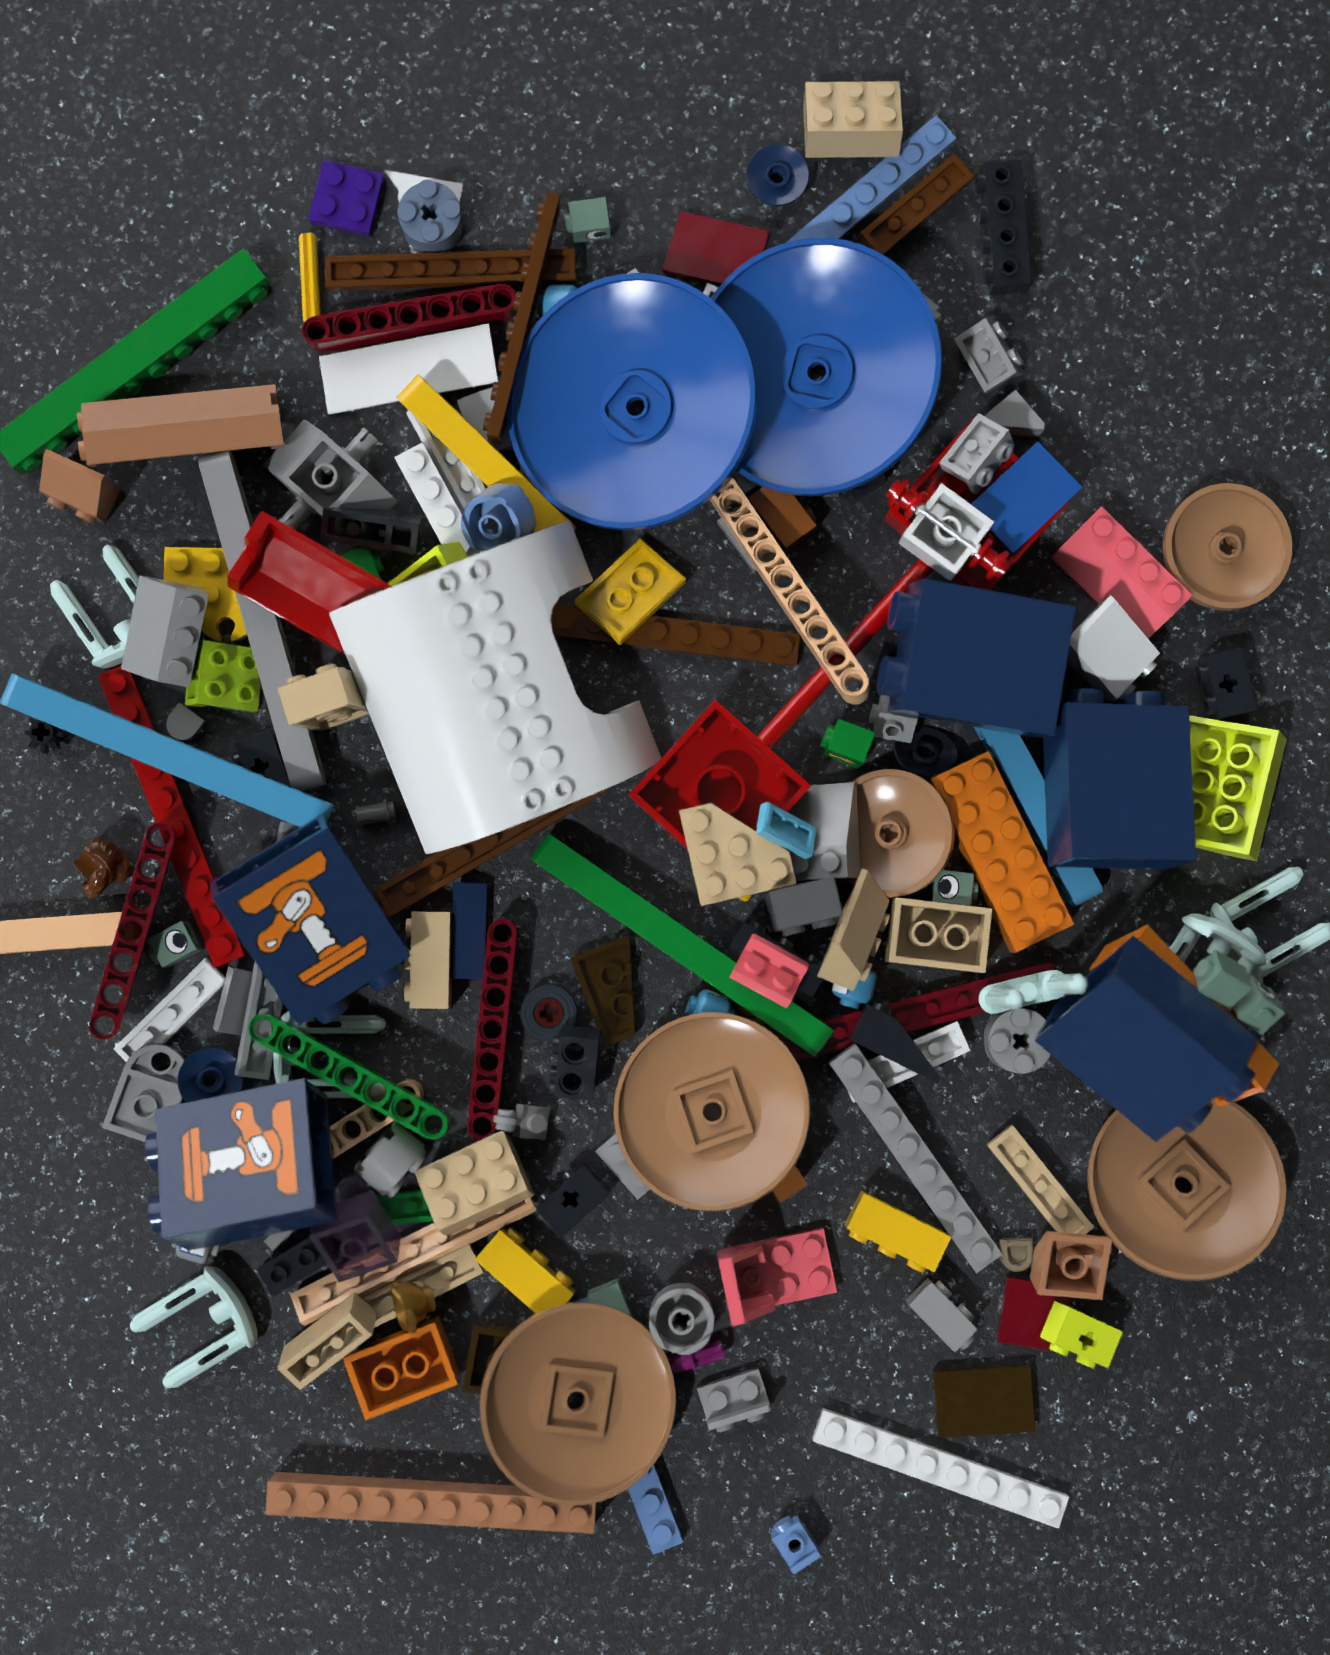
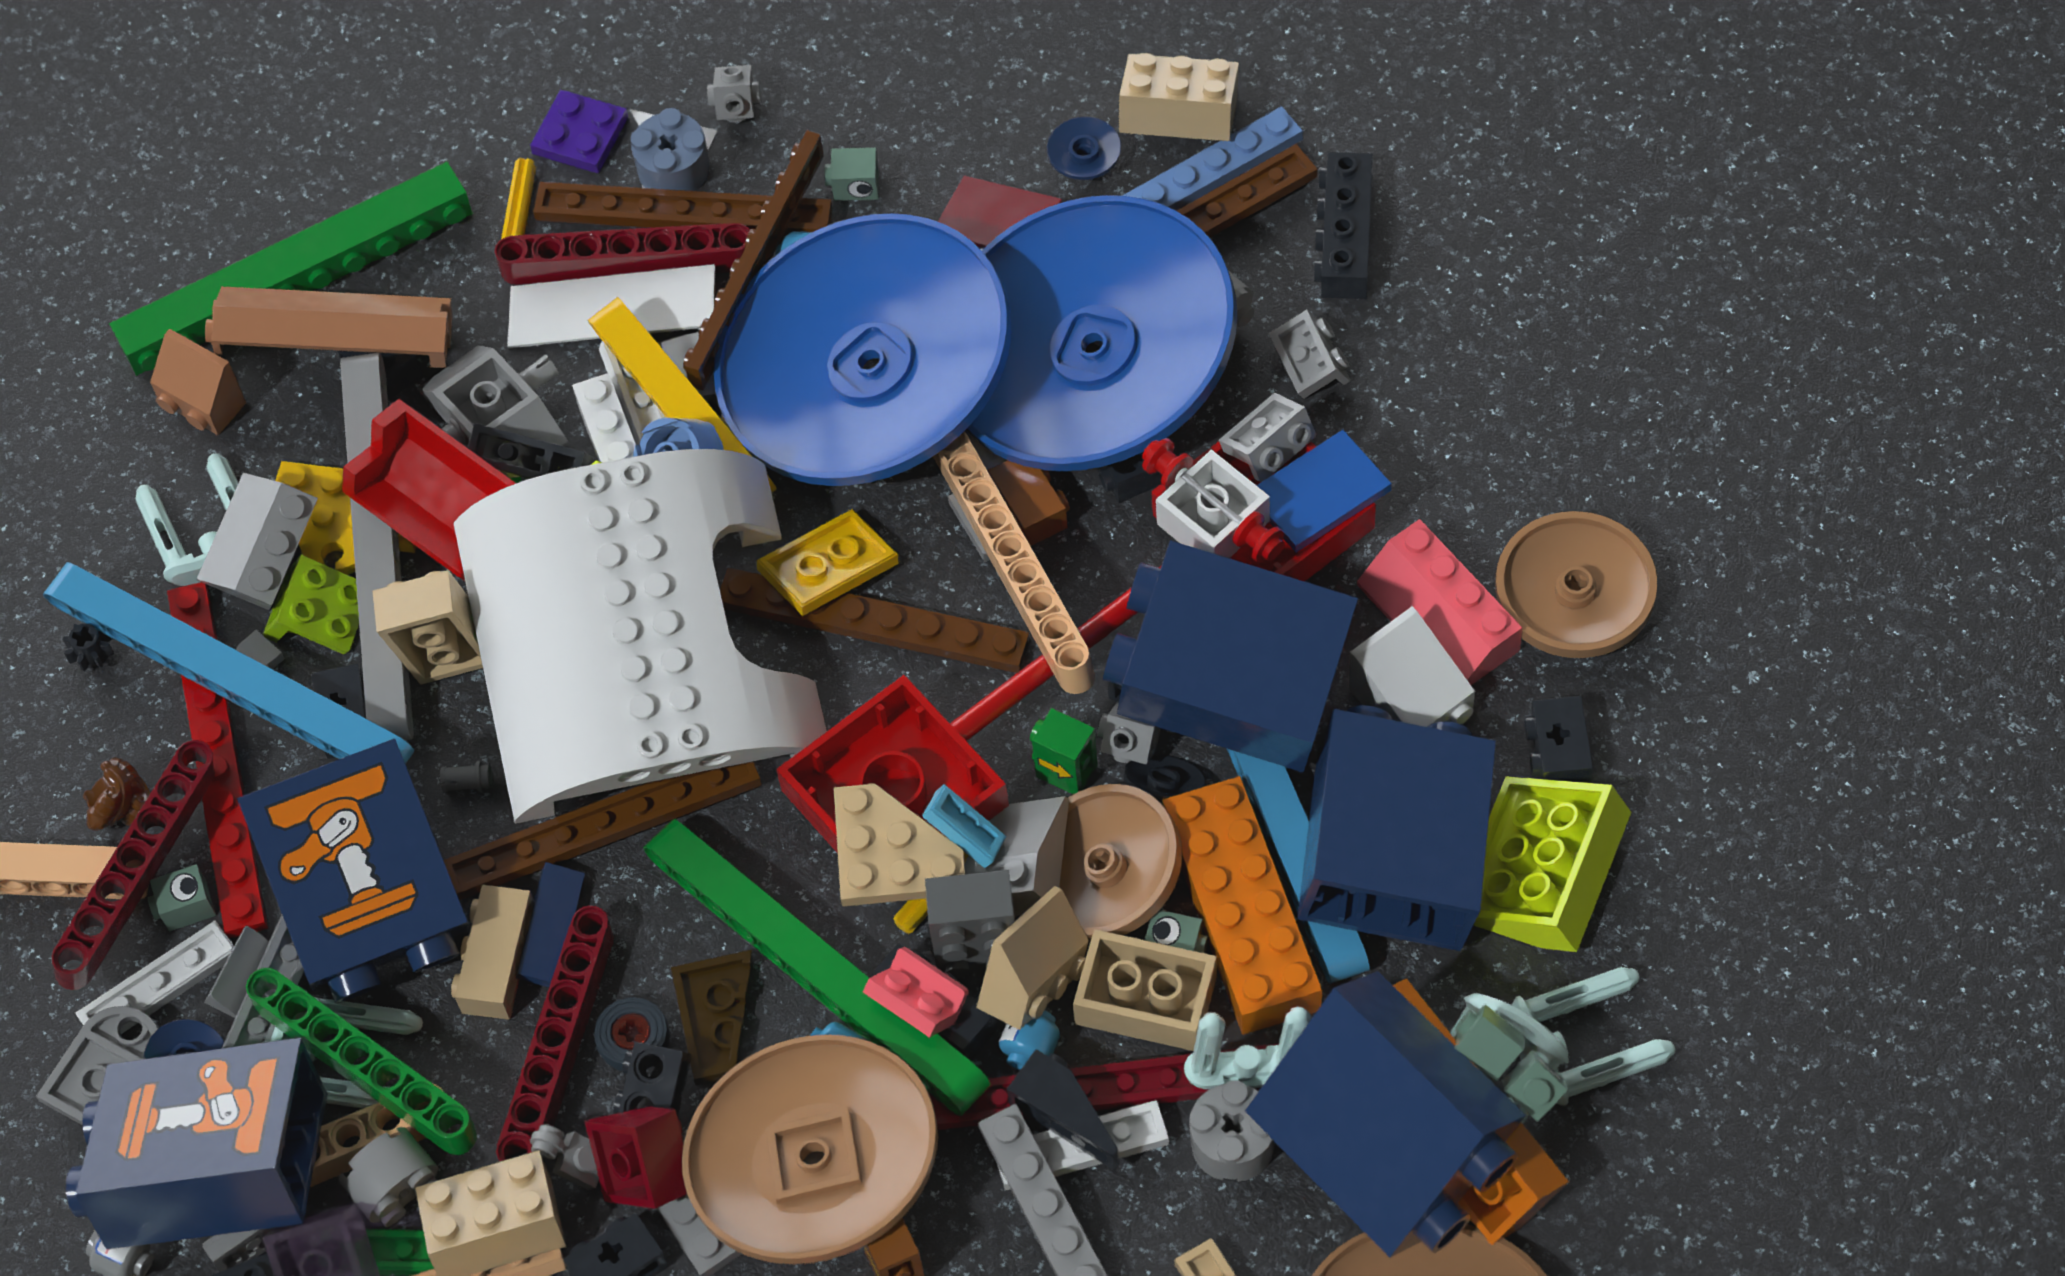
camera: 15 degrees right, 25 degrees down
(473, 151) = (734, 93): none -> light grey brick
(579, 1122) = (638, 1156): none -> dark red slope
(1017, 416) = (1332, 415): light grey slope -> none

